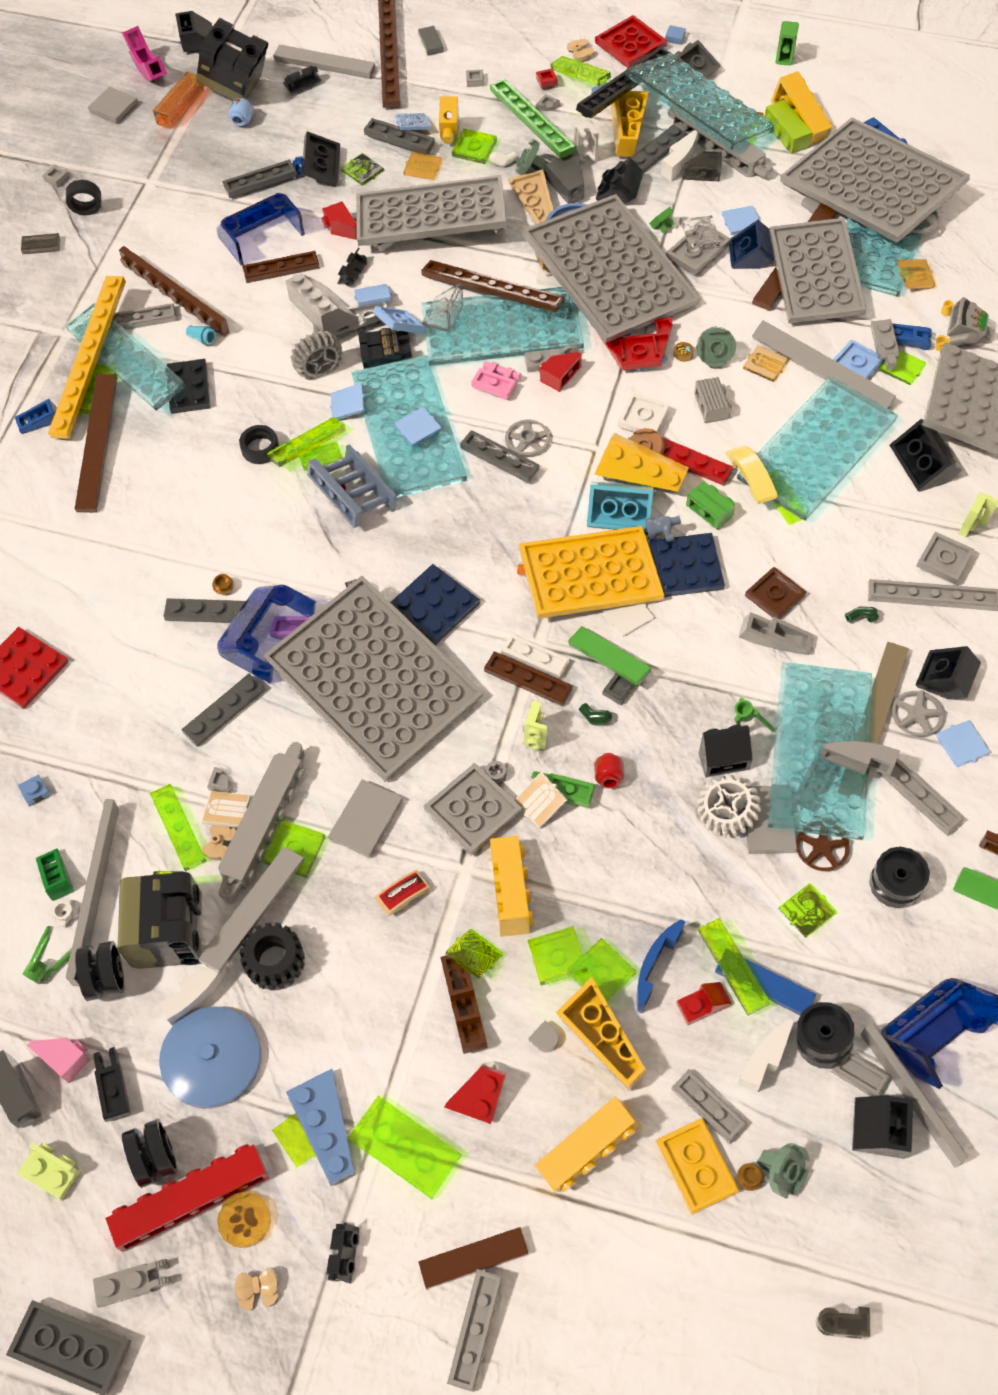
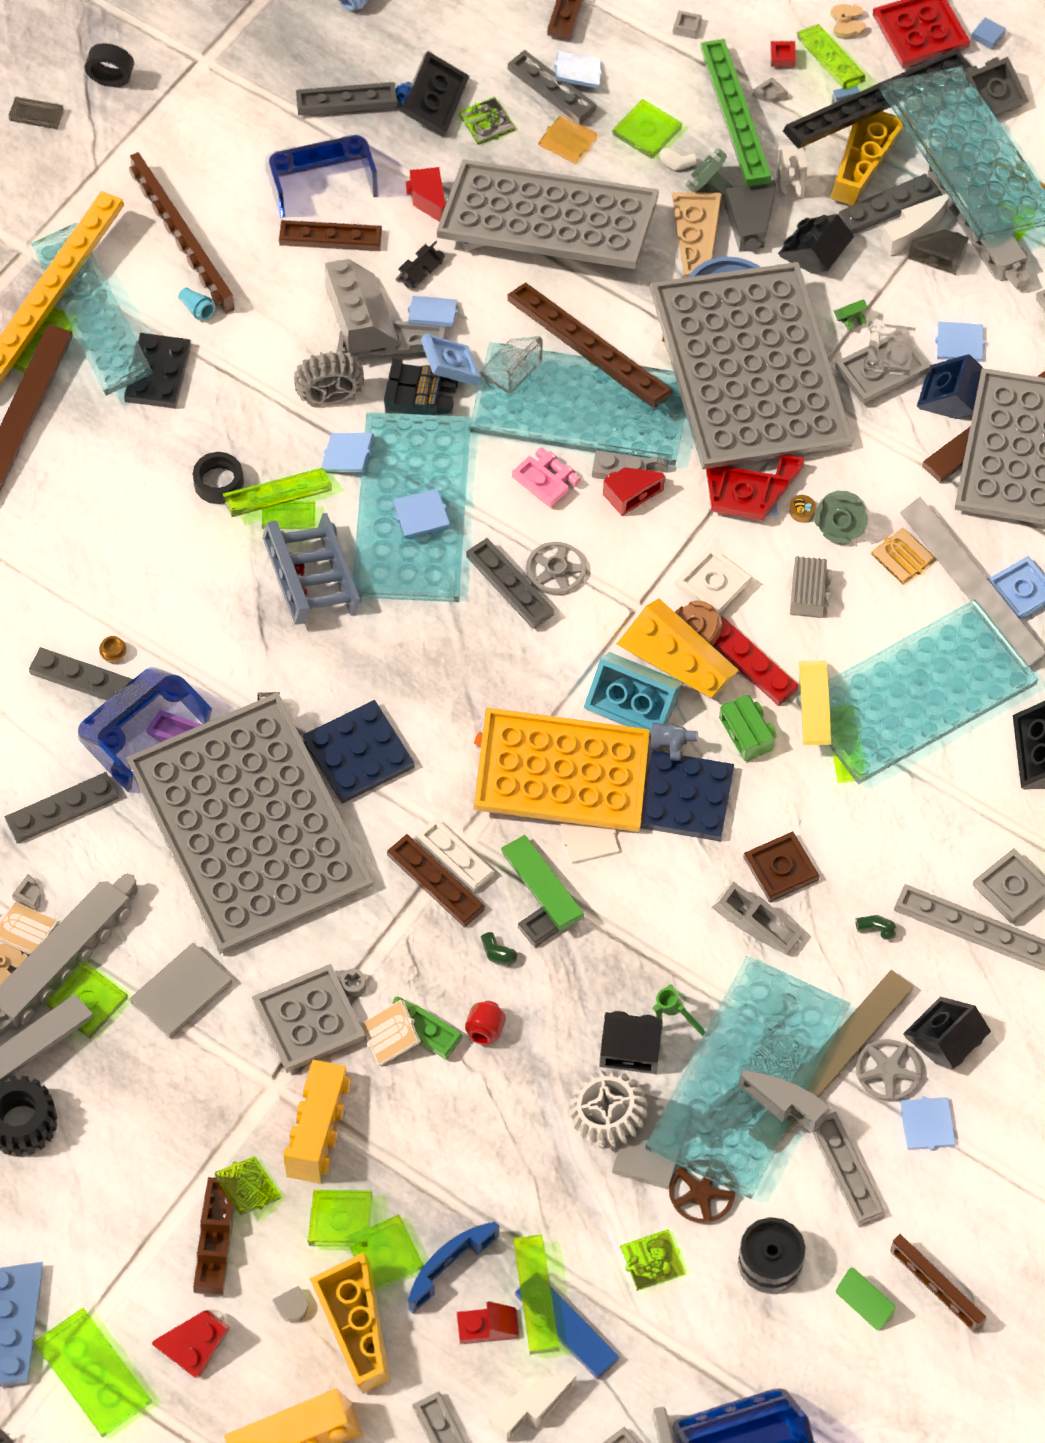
camera: 15 degrees right, 0 degrees up
(55, 176) = (85, 18): light grey tile -> none
(146, 316) = (136, 257): light grey tile -> none
(401, 892) = (190, 1089): slope -> none
(449, 126) = (624, 83): yellow torso -> none
(535, 732) = (415, 942): yellowish green bracket -> none
(825, 1035) = (605, 1403): black wheel -> none

